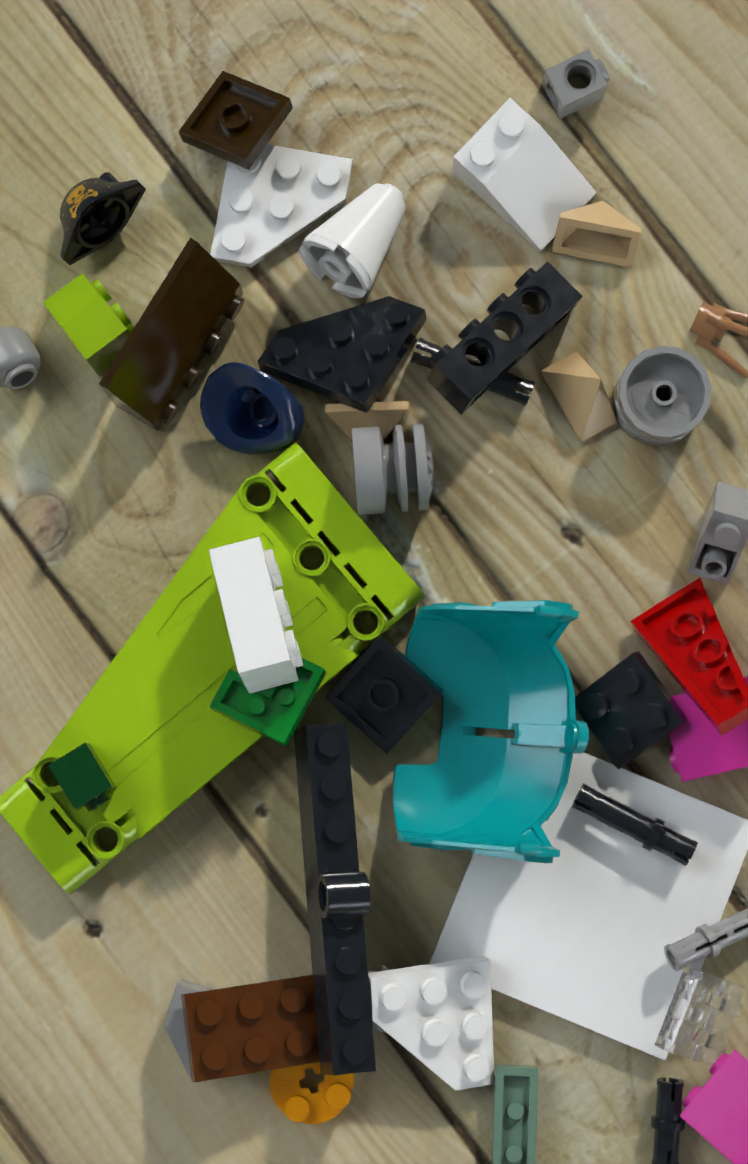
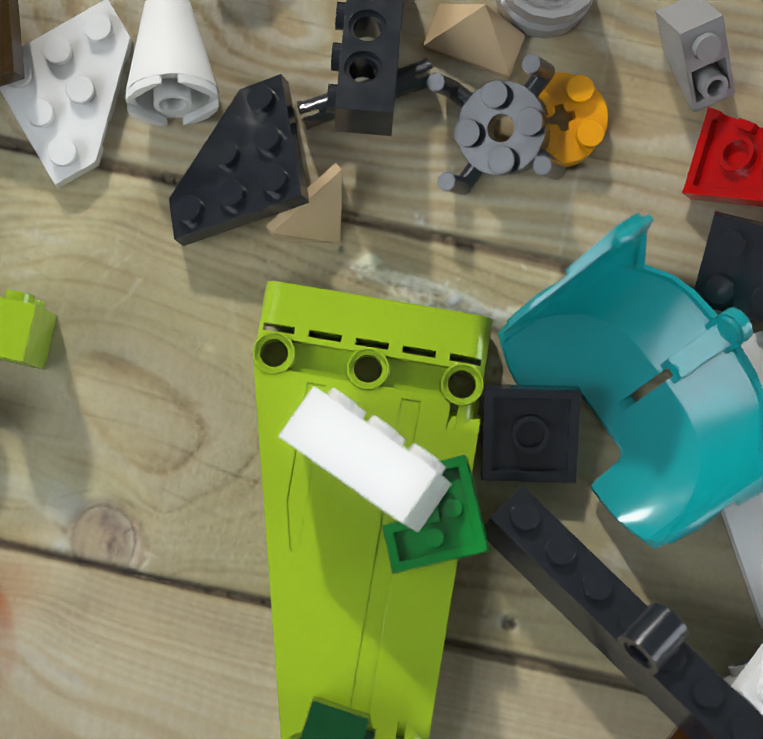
camera: 45 degrees left, 0 degrees up
(173, 337) = (82, 278): dark brown slope -> none
(250, 410) = (204, 286): dark blue hat -> none
(391, 469) = (371, 233): light grey wheel -> none
(530, 454) = (477, 121): none -> plate
(614, 493) = (589, 113): none -> light orange plate

